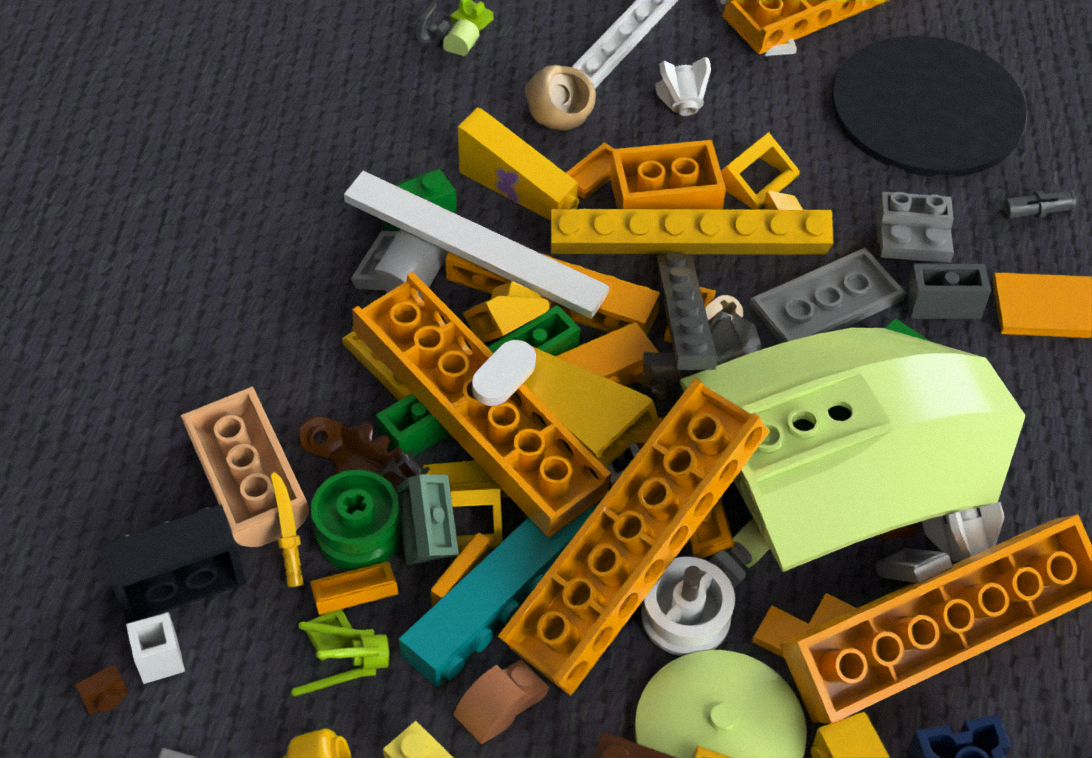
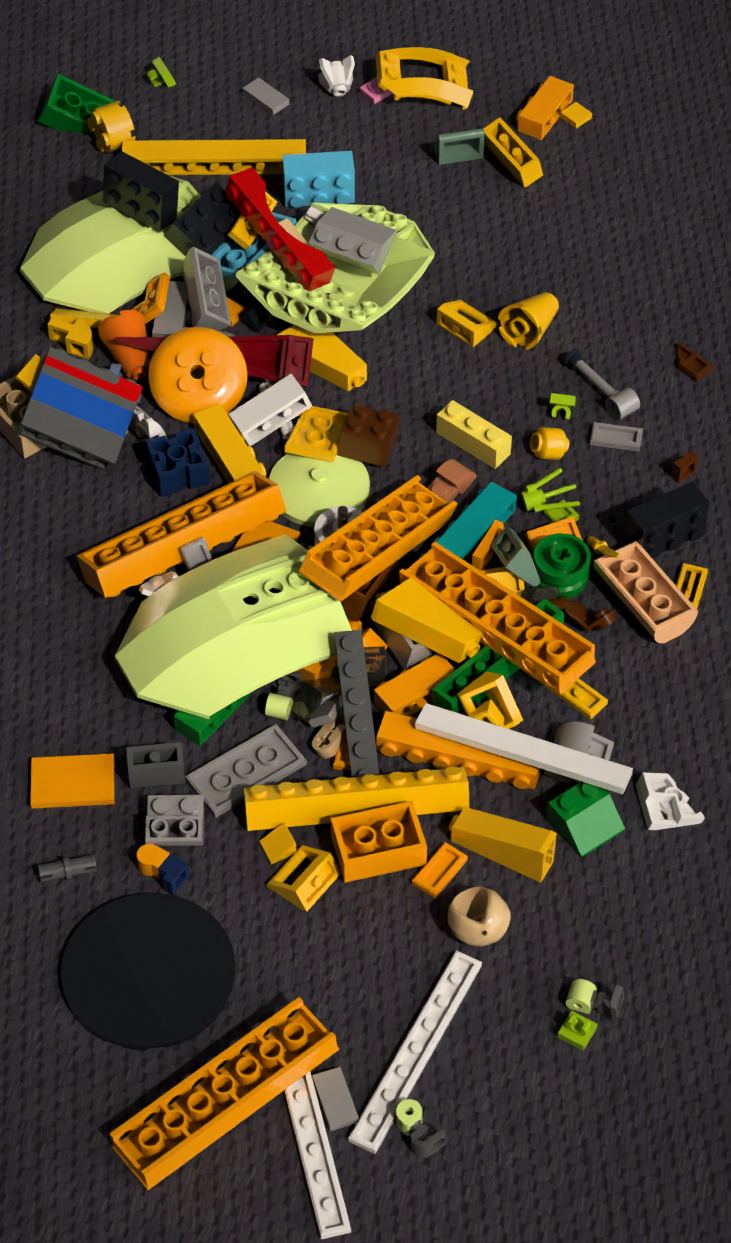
camera: 175 degrees right, 0 degrees up
(144, 511) = (694, 570): none -> yellow tile
(155, 648) = (659, 480): white brick -> none
(309, 223) = (659, 793): none -> white slope
(503, 372) = (479, 613): white tile -> none
(684, 86) = (370, 950): white brick -> none
(916, 181) = (162, 865): none -> leg

